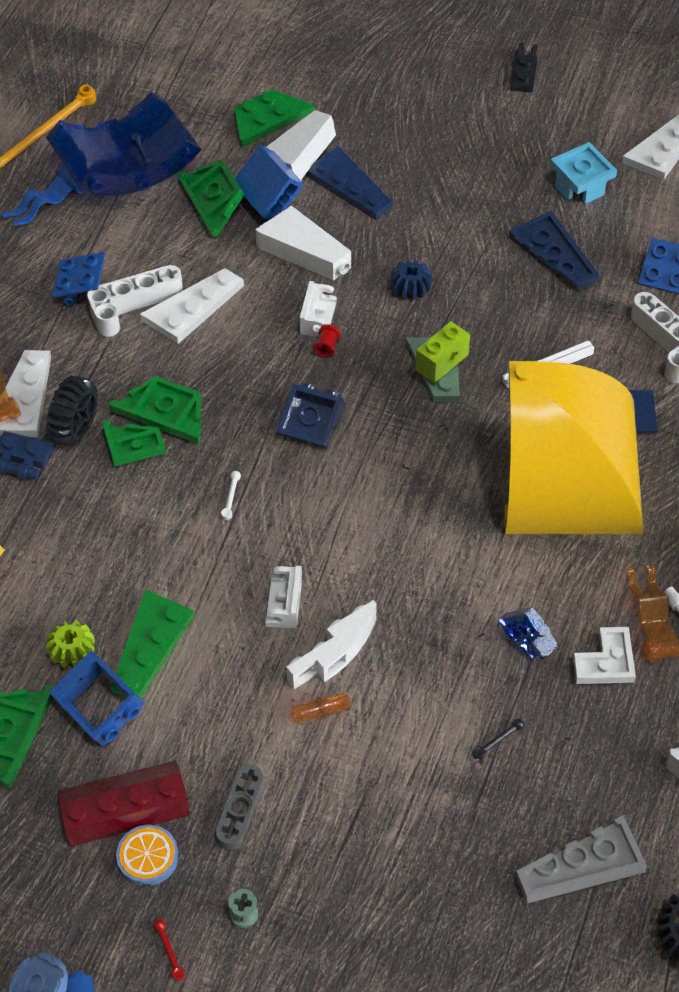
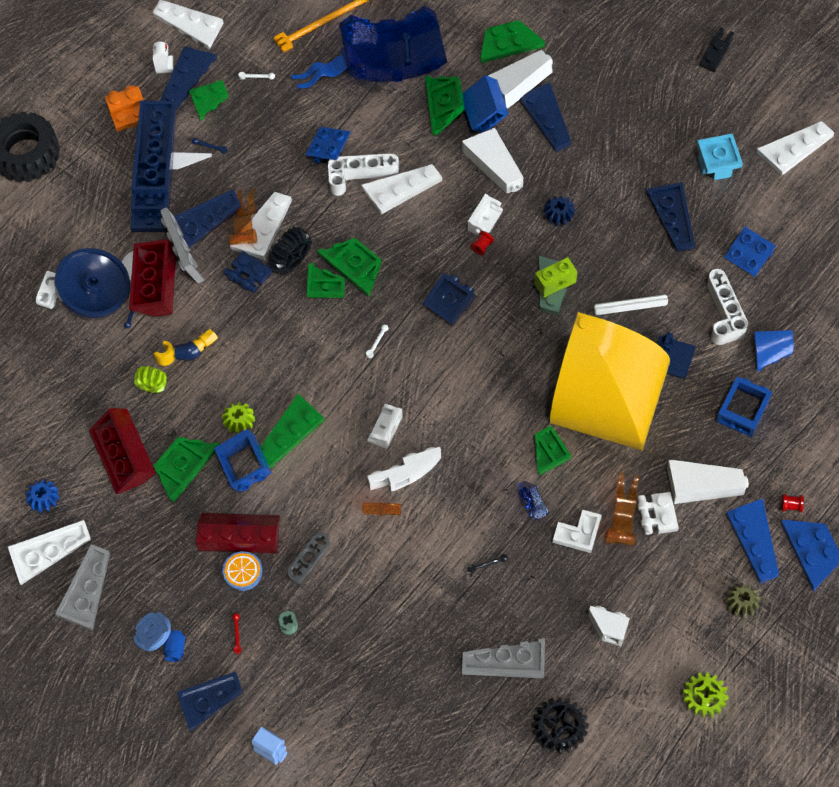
camera: 20 degrees right, 10 degrees up
(521, 566) = (549, 450): none -> green wing

